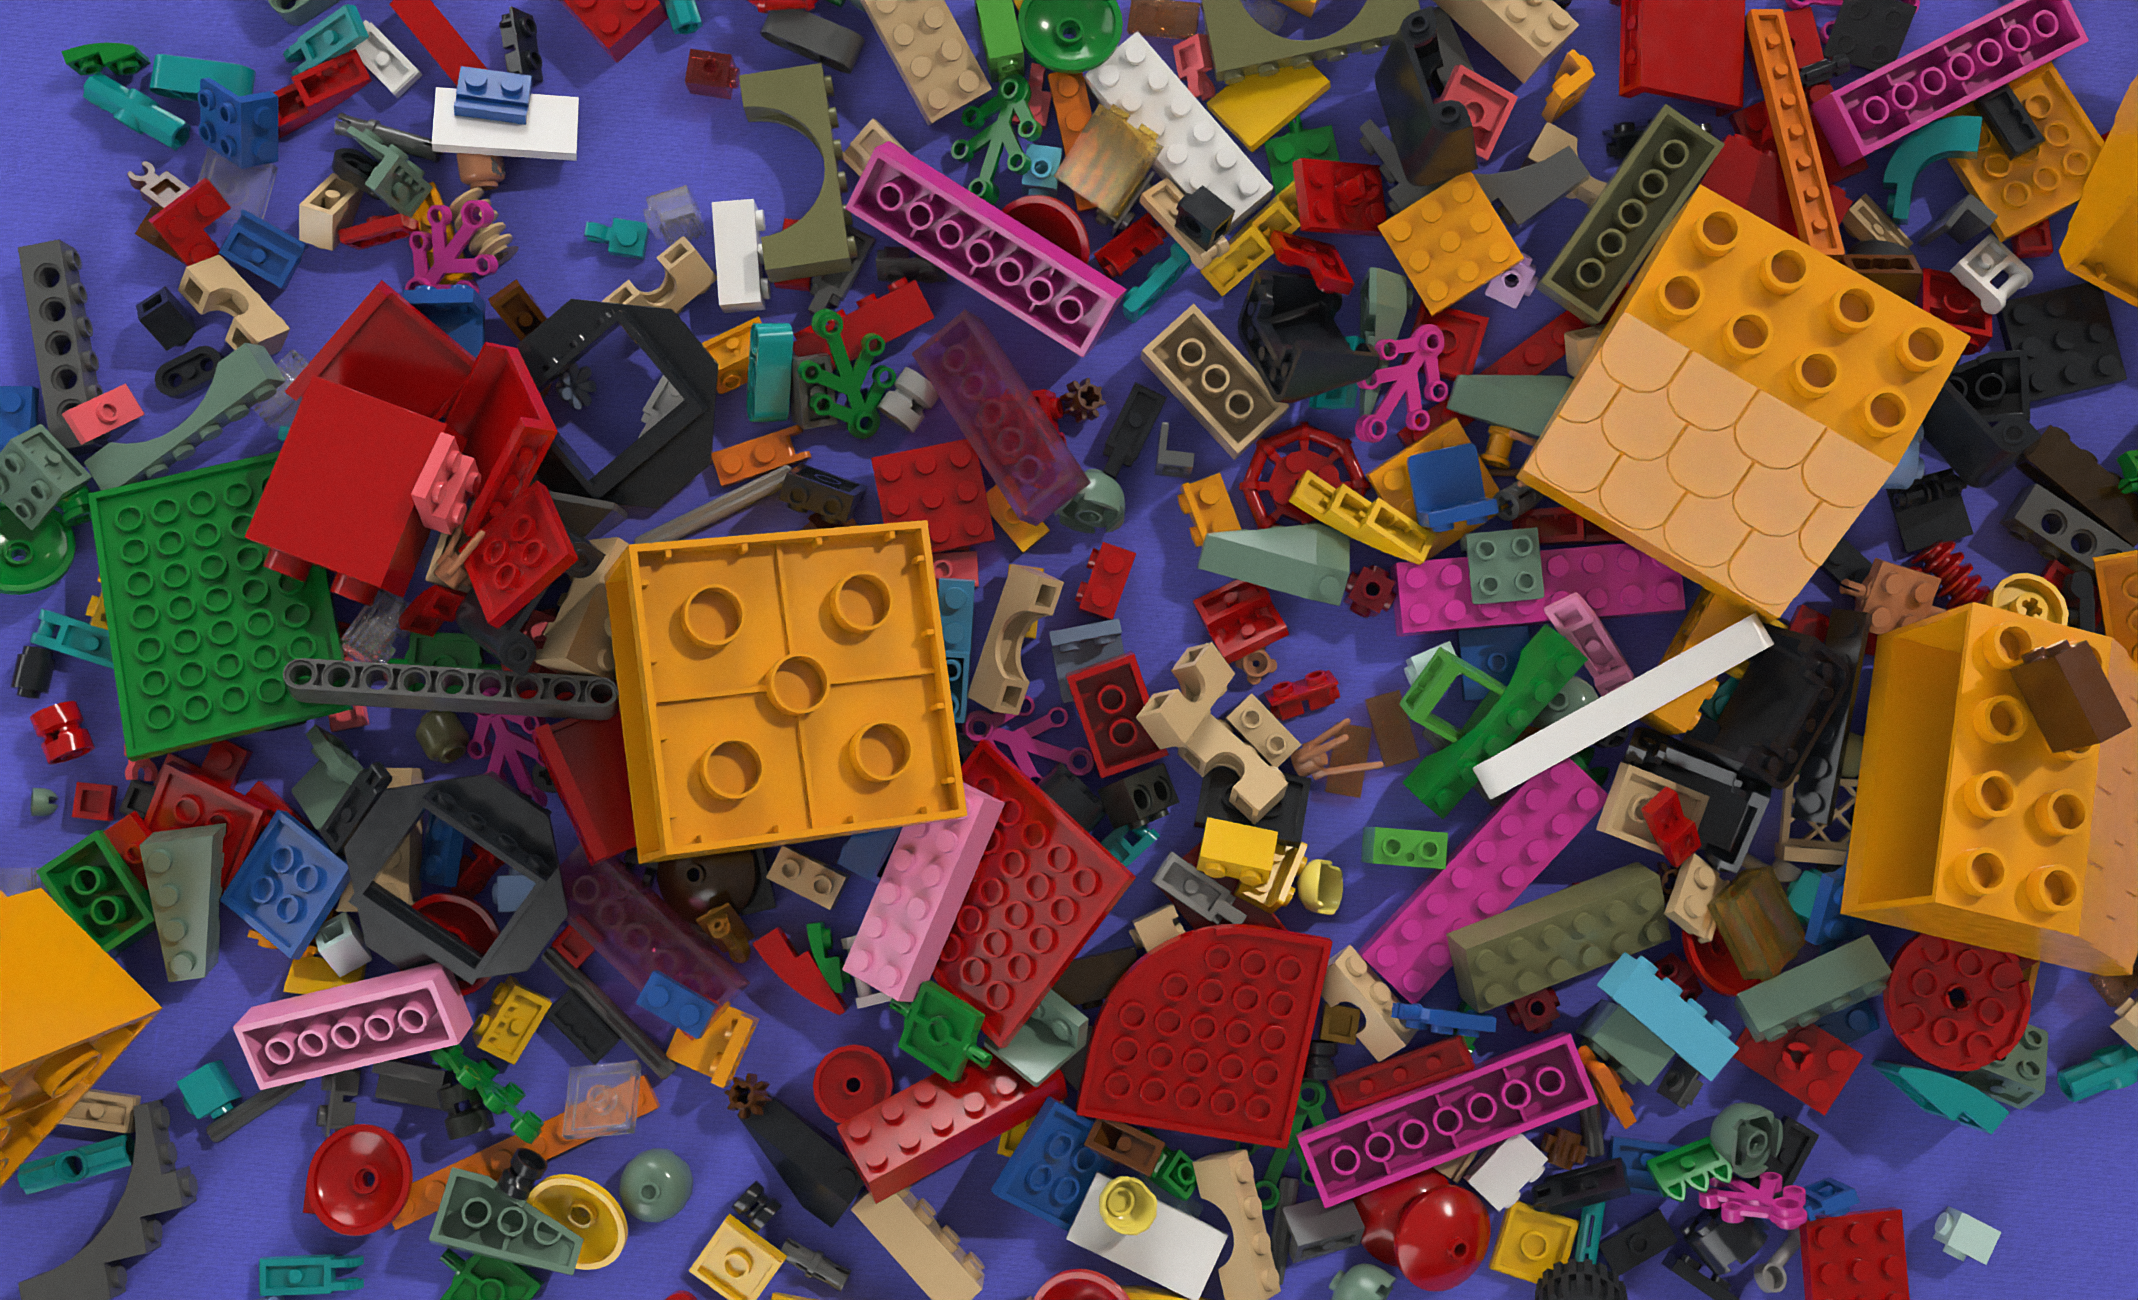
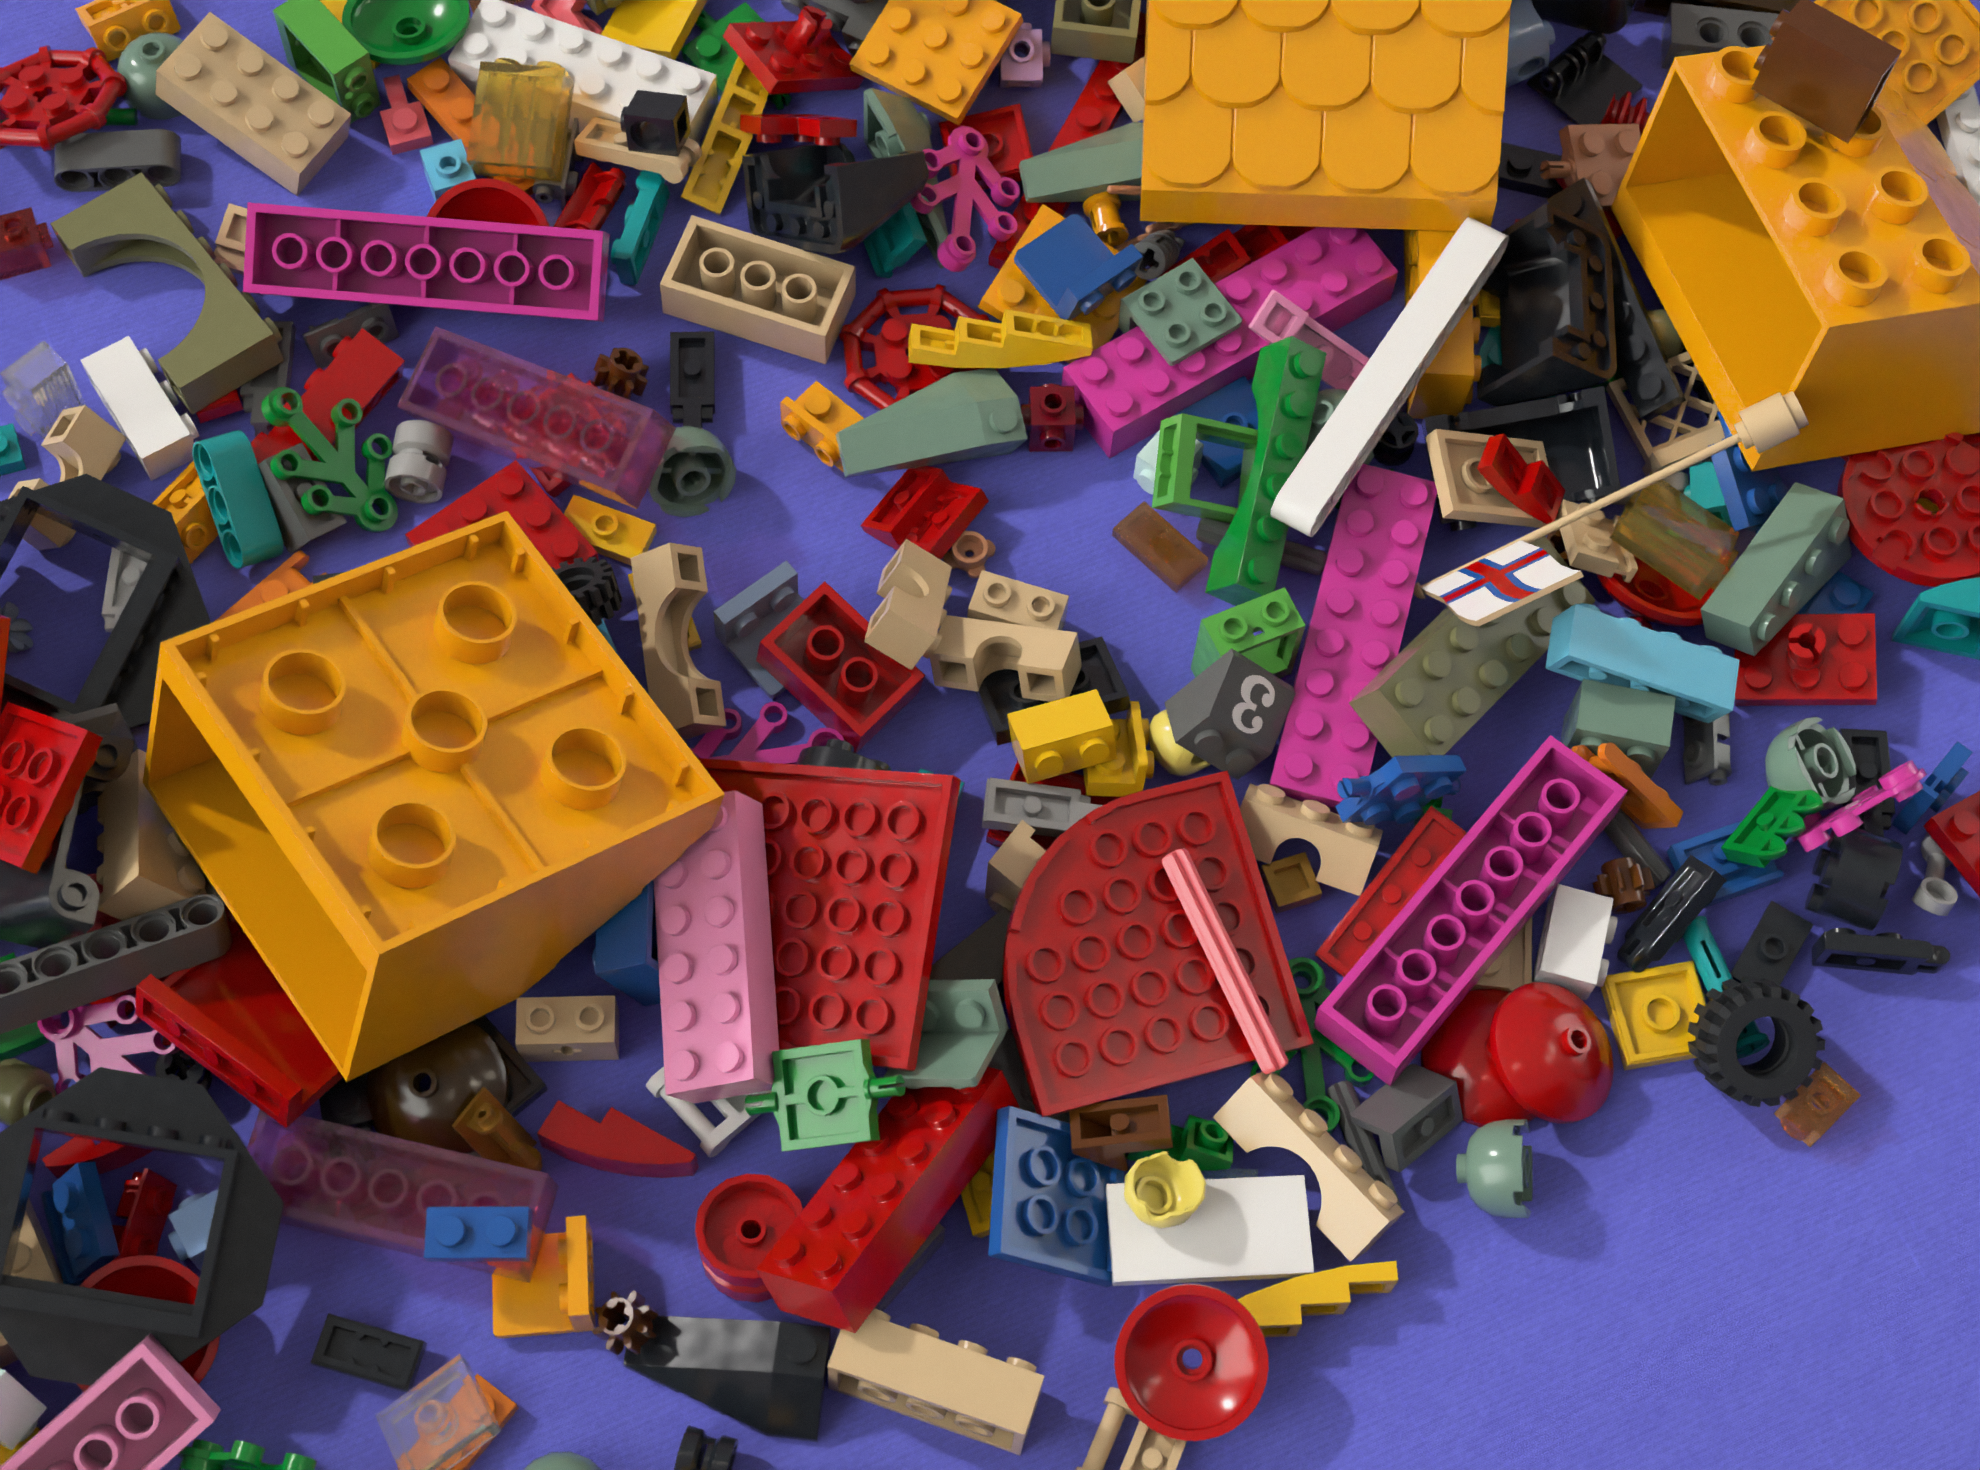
camera: 30 degrees left, 20 degrees down
(510, 1020) = (268, 1393): yellow bracket -> none
(573, 947) = (311, 1255): red plate -> none
(610, 1013) = (433, 1330): dark grey axle -> none
(830, 966) = (623, 1097): green slope -> none
(967, 557) = (592, 586): none -> black tyre
(999, 134) = (377, 116): green plant -> none
(1107, 581) = (750, 536): red brick -> none
(1139, 797) = (916, 739): pearl dark grey brick -> none
(1172, 462) = (755, 380): dark grey panel -> none
(1255, 1072) = (1225, 961): none -> coral axle
(1313, 756) = (1090, 616): nougat plant -> none
(1317, 688) = (1052, 546): red hinge -> none
(1319, 1063) = (1296, 934): black wheel -> none
(1348, 753) = (1131, 604): clear orange plate -> none
(1360, 895) = (1230, 713): none -> dark grey slope
(1520, 1011) = (1493, 751): dark red brick -> none
(1606, 911) = (1527, 572): none -> flag

